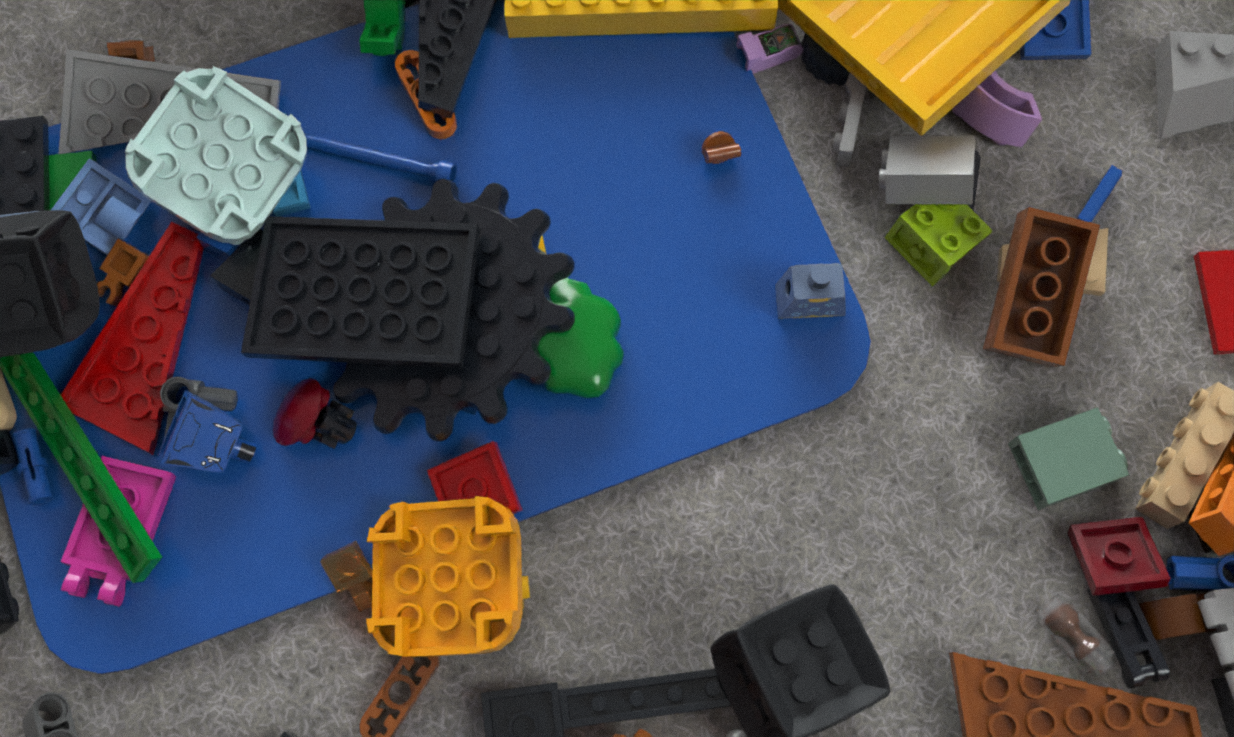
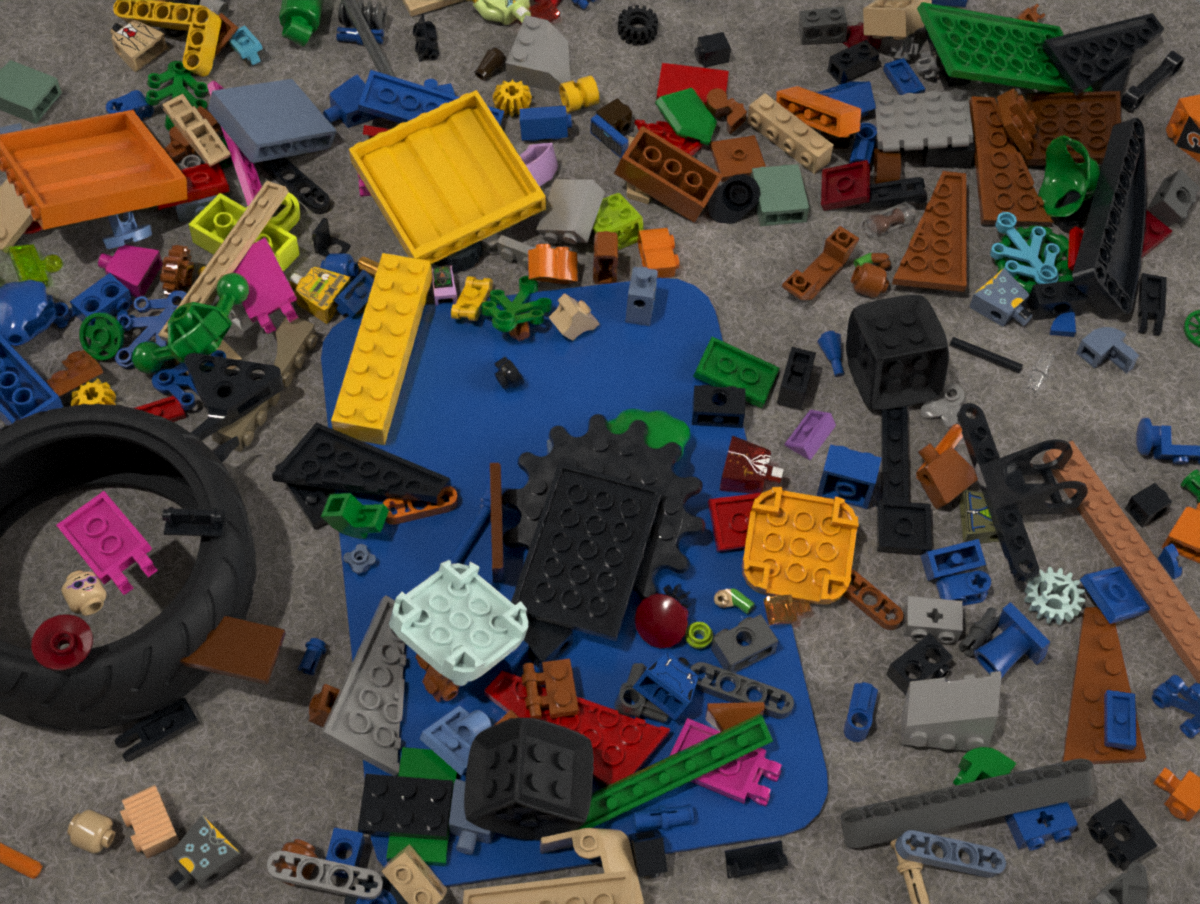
camera: 80 degrees left, 15 degrees down
(178, 531) = (729, 714): none -> dark orange slope
(182, 304) = (559, 686): none -> dark orange plate
(213, 32) = (312, 656): none -> blue pin
(217, 534) = (742, 685): none -> dark grey beam
(223, 702) = (860, 711): none -> blue piece
(268, 513) = (736, 657): none -> dark grey brick
(288, 460) = (699, 628): none -> lime plate
(335, 54) = (363, 565): none -> sand blue plate
(359, 501) = (732, 598): none -> arm
(389, 175) = (496, 522): none -> reddish brown tile
(562, 487) = (748, 468): none -> clear red torso
(576, 631) = (849, 476): none -> blue brick
(643, 152) = (508, 374): none -> black piece
(651, 451) = (707, 413): none -> black brick
(656, 571) = (811, 433): none -> medium lavender slope
(712, 123) = (507, 319): none -> green plant
(728, 448) = (729, 366): none -> green tile
(734, 532) = (796, 378): none -> black brick
(750, 211) = (573, 317): none -> tan brick
(754, 85) = (470, 300): none -> yellow plate
(808, 578) = (831, 346): none -> blue cone
(831, 167) = (552, 265): none -> orange brick
(866, 232) = (605, 257): none -> dark orange brick
(905, 304) = (657, 251): none -> orange brick
(948, 618) = (869, 280): none -> dark orange head
(978, 559) = (832, 259): none -> dark orange slope
(996, 621) = (873, 258): none -> dark orange arm
(1034, 392) = (734, 199): none -> black piece
(1085, 108) = (544, 123): none -> blue brick
(1119, 60) = (512, 97): none -> yellow gear
(1121, 285) = (665, 131): none -> red tile
(1124, 388) = (736, 156): none -> dark orange plate
(1132, 201) = (617, 115): none -> dark brown brick
(1158, 143) = (577, 94): none -> yellow wheel
(1171, 18) = (491, 62): none -> dark brown cone
(1173, 301) = (688, 115): none -> green tile
(1208, 342) = (721, 106): none -> dark orange leg

